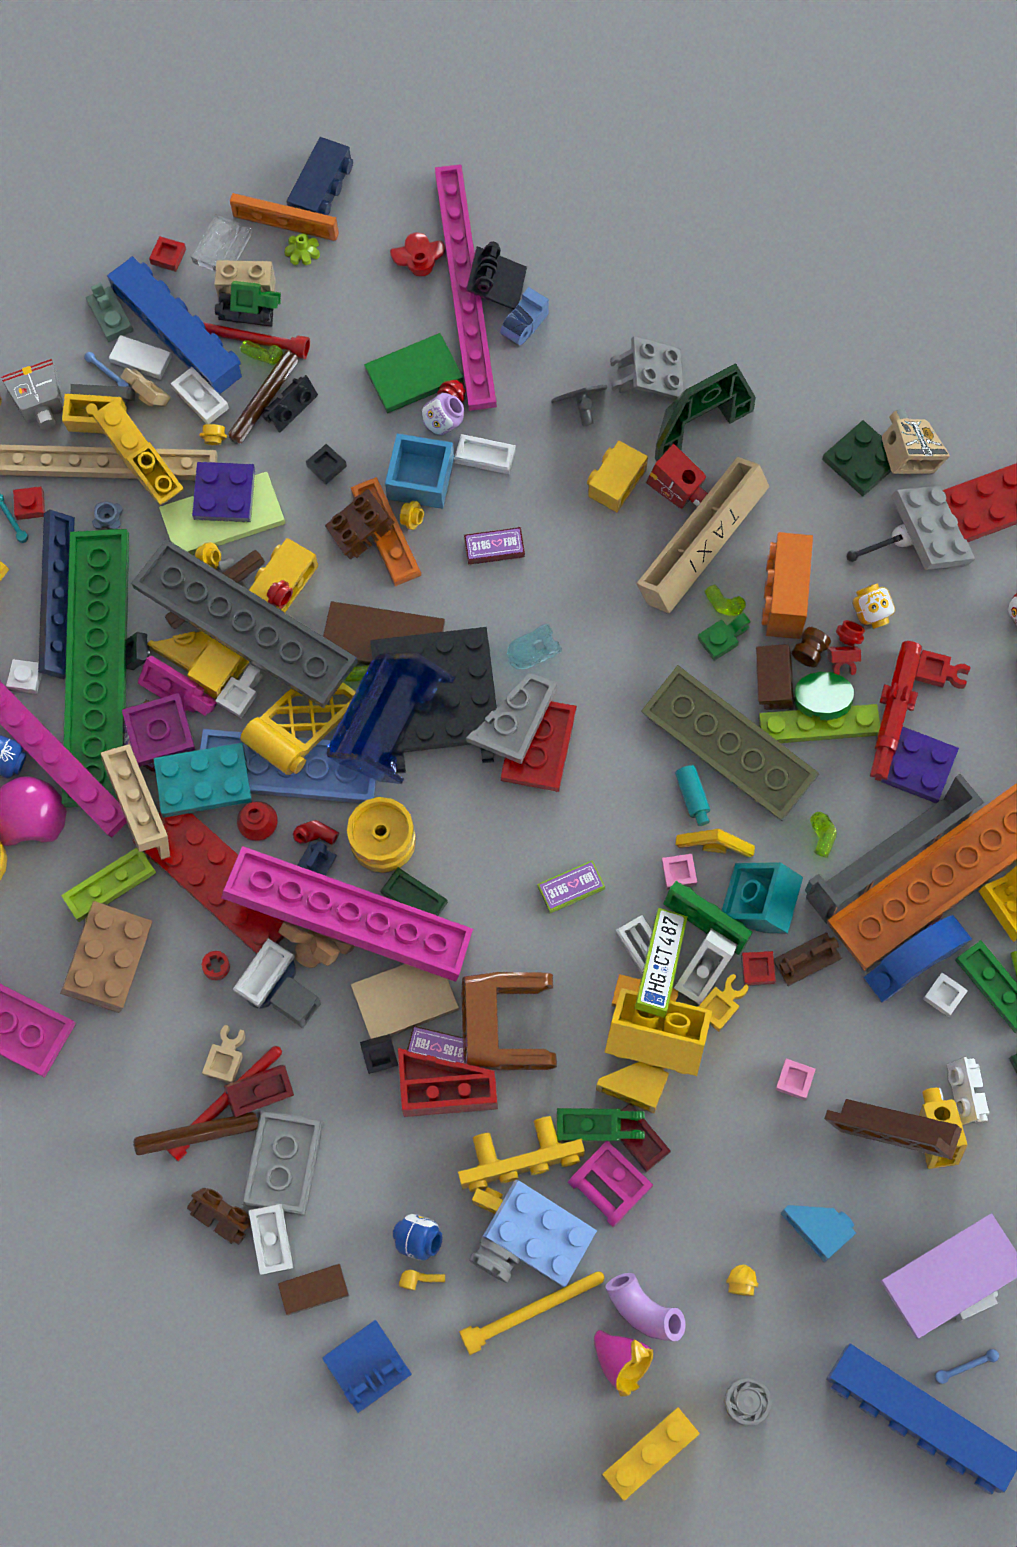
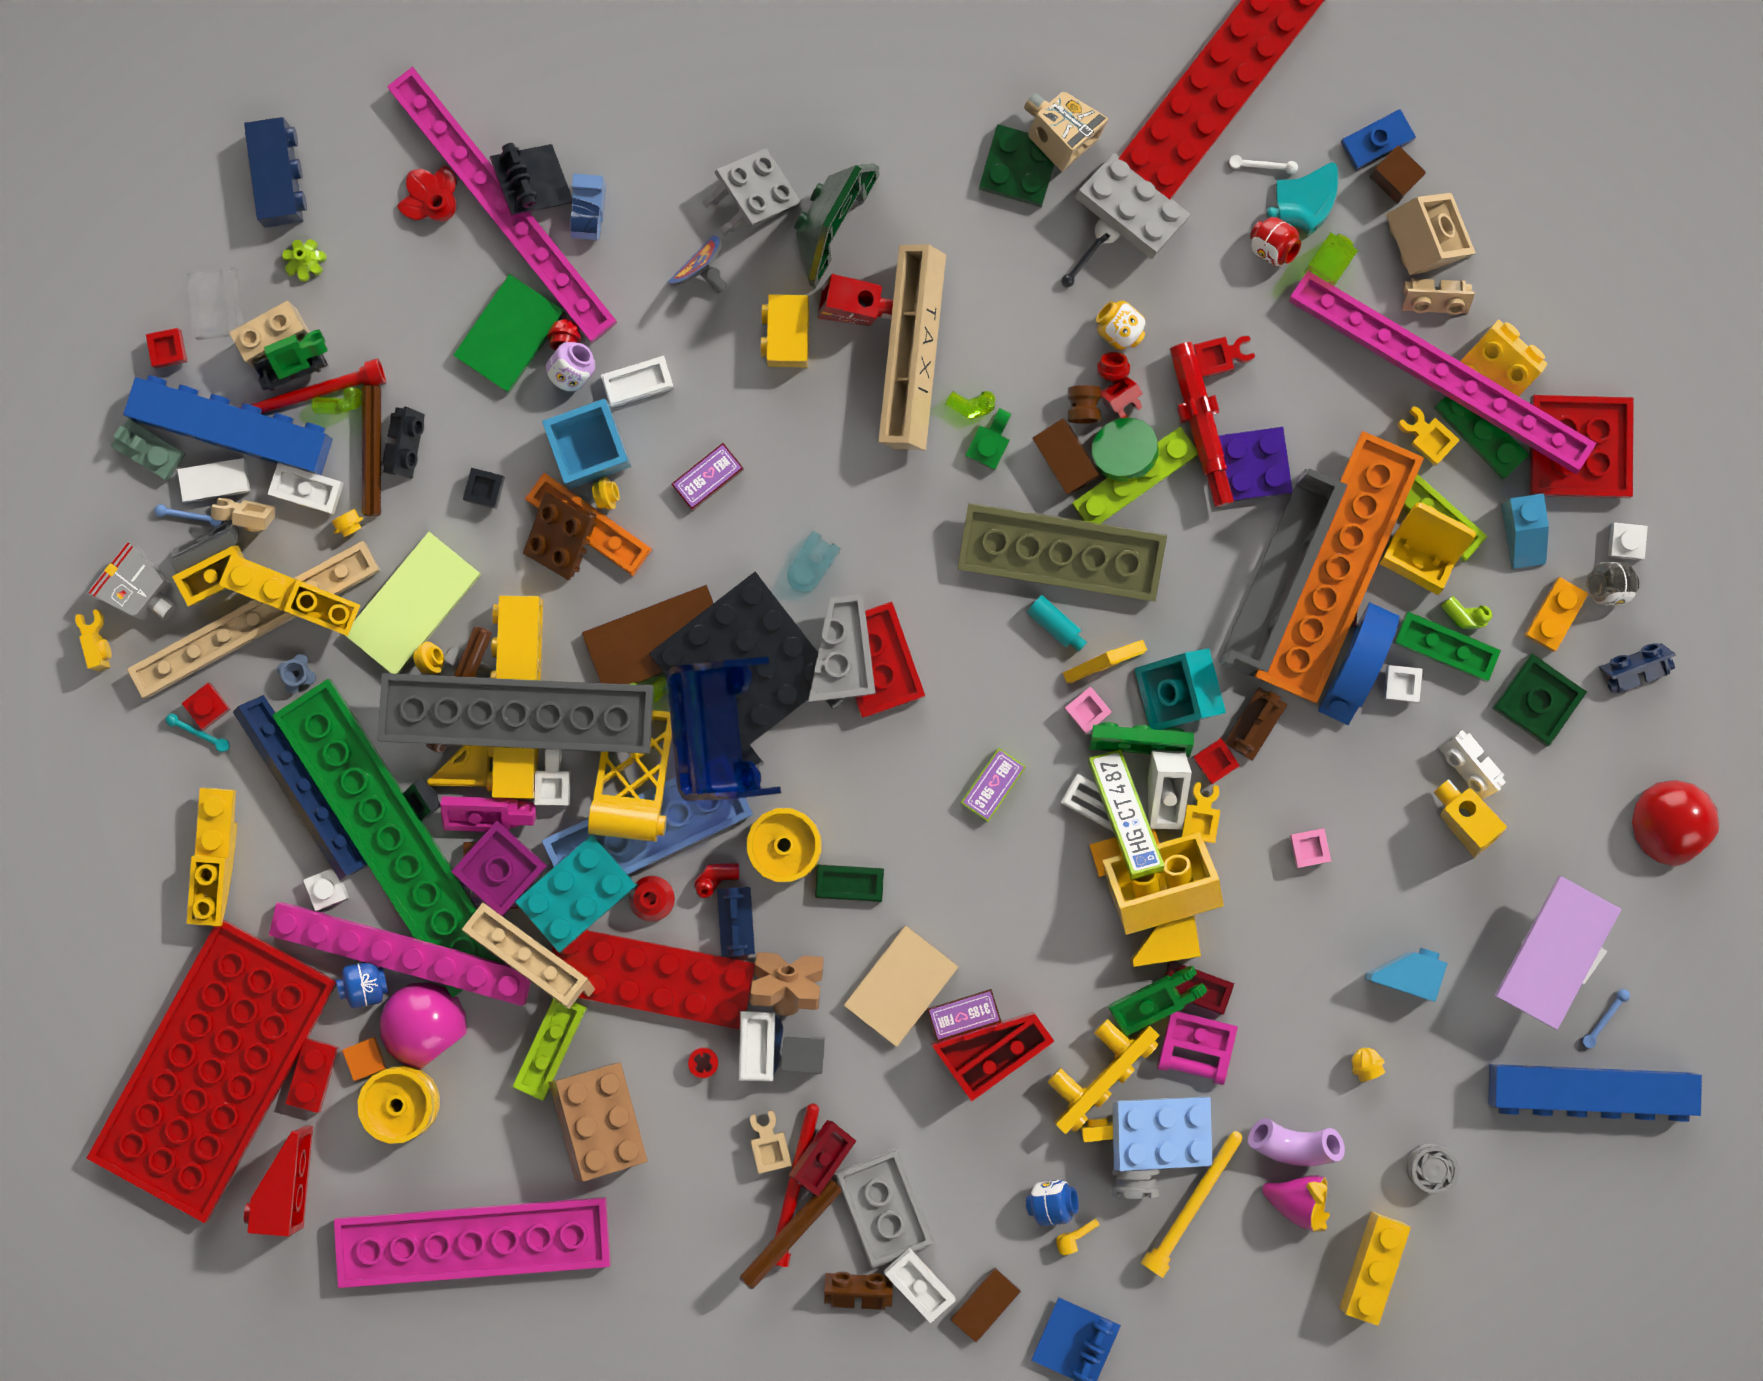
camera: 30 degrees left, 15 degrees up
(223, 491) = (401, 581): dark purple plate -> none
(279, 594) = (533, 663): red plate -> none
(284, 217) = (263, 235): orange tile -> none
(348, 913) = (803, 945): dark pink plate -> none
(379, 1053) = (912, 1055): black plate -> none
(481, 1021) = (990, 969): dark orange connector -> none
(787, 585) = (1027, 355): orange brick -> none
(825, 831) = (1202, 586): clear neon green arm -> none
(896, 1128) = (1432, 846): reddish brown fence -> none

